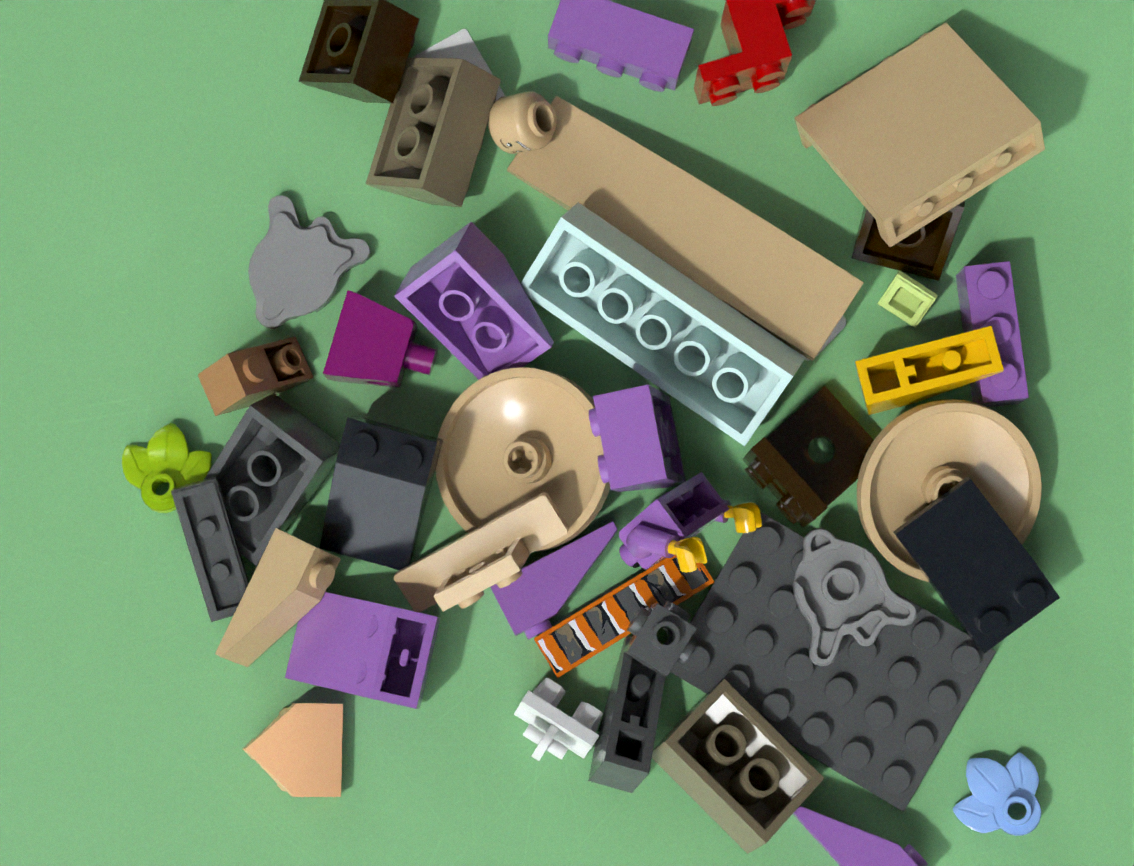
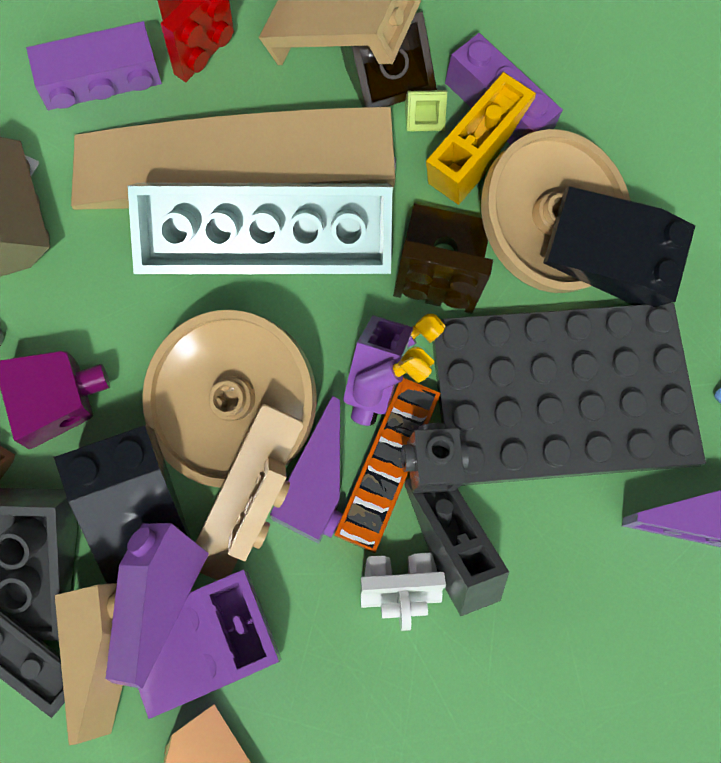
camera: 45 degrees left, 10 degrees down
(350, 585) = (148, 598): none -> medium lavender slope
(474, 304) = (108, 306): medium lavender slope -> none
(522, 122) = (57, 160): tan head -> none
(637, 439) = (306, 310): medium lavender slope -> none
(736, 767) = (567, 519): dark tan slope -> none
(844, 593) = (542, 332): light grey tile -> none

